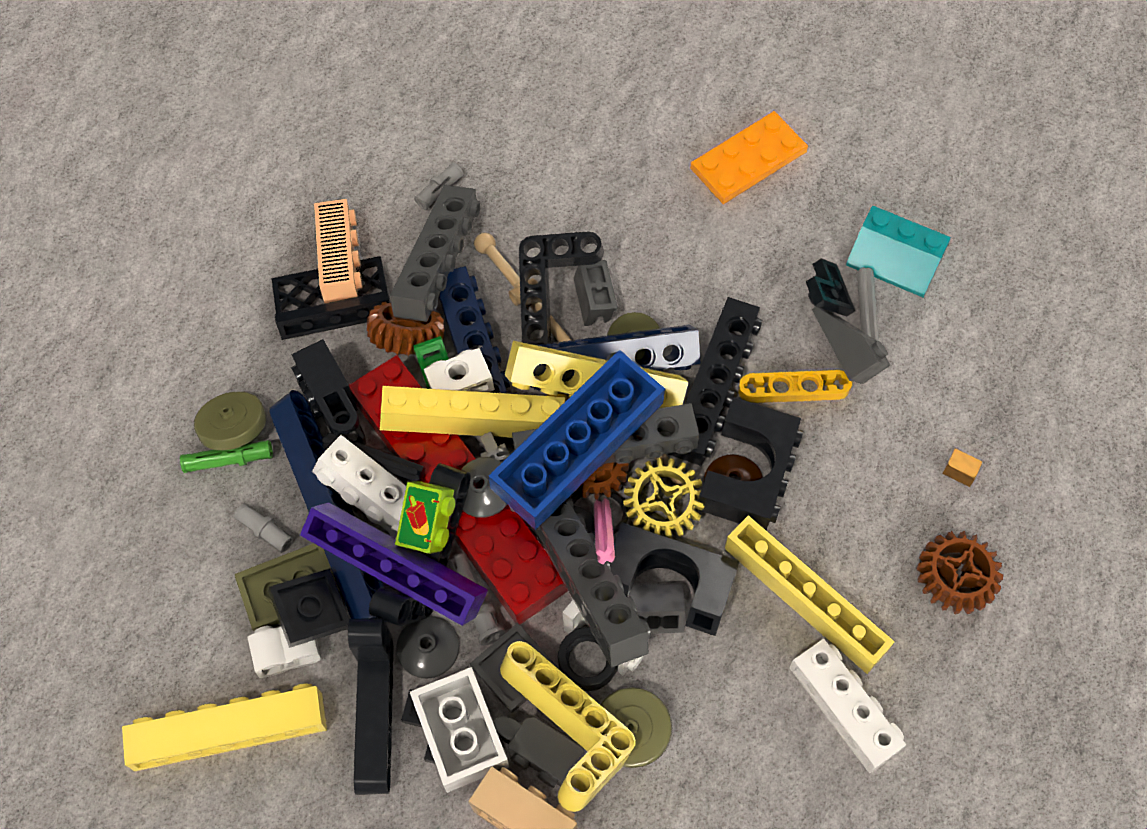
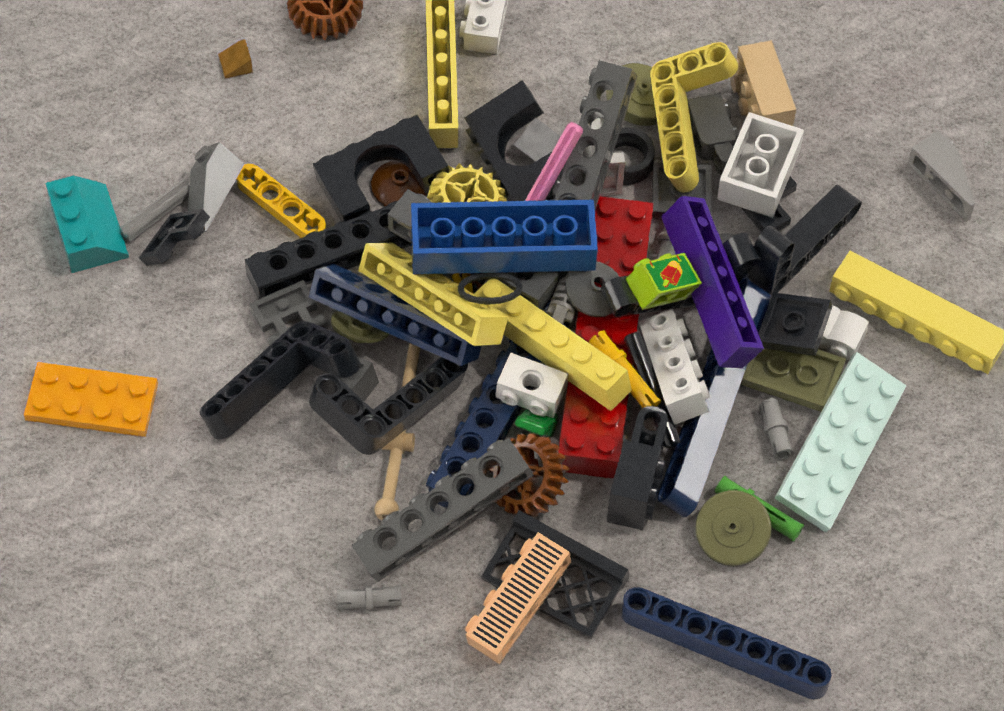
camera: 140 degrees left, 5 degrees down
(157, 339) = (734, 655): none -> dark blue beam
(203, 560) = (840, 442): none -> light aqua plate
(390, 440) = (639, 388): none -> yellow pin
(527, 377) = (487, 301): none -> black tyre
(654, 282) = (273, 370): none -> black beam
(702, 311) = (283, 307): none -> dark grey plate

